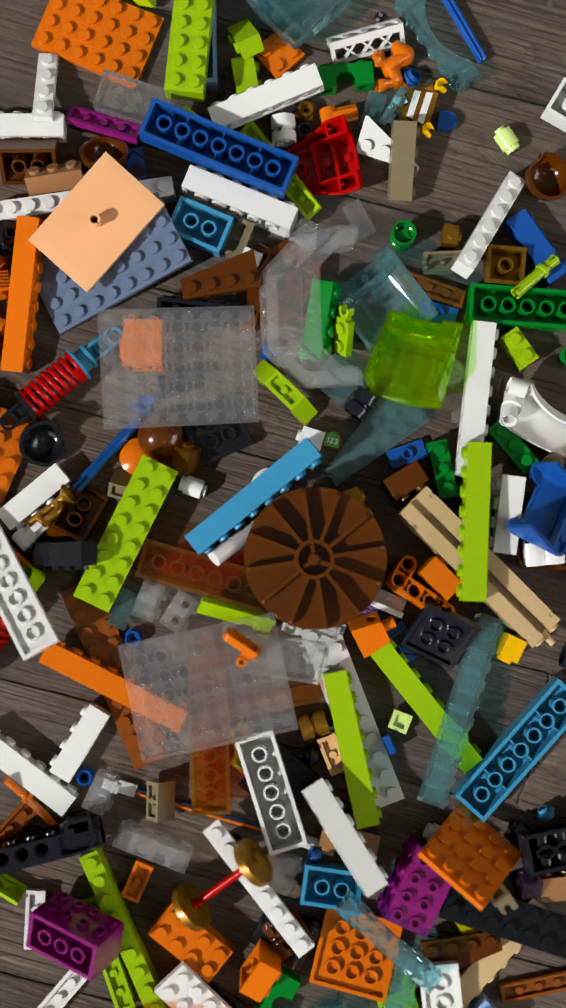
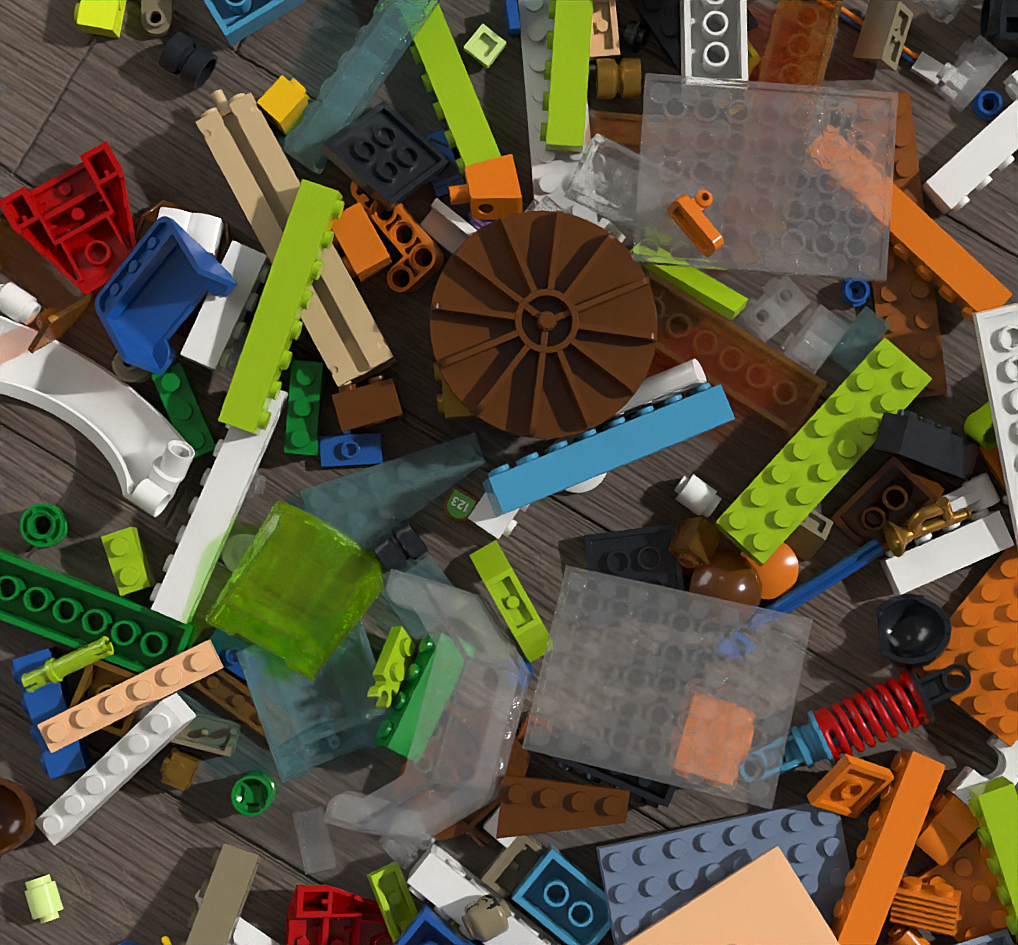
camera: 160 degrees left, 0 degrees up
(53, 340) = (850, 786): none -> orange plate
(245, 199) = (486, 918): none -> dark tan head
(492, 268) = (130, 696): none -> light nougat plate

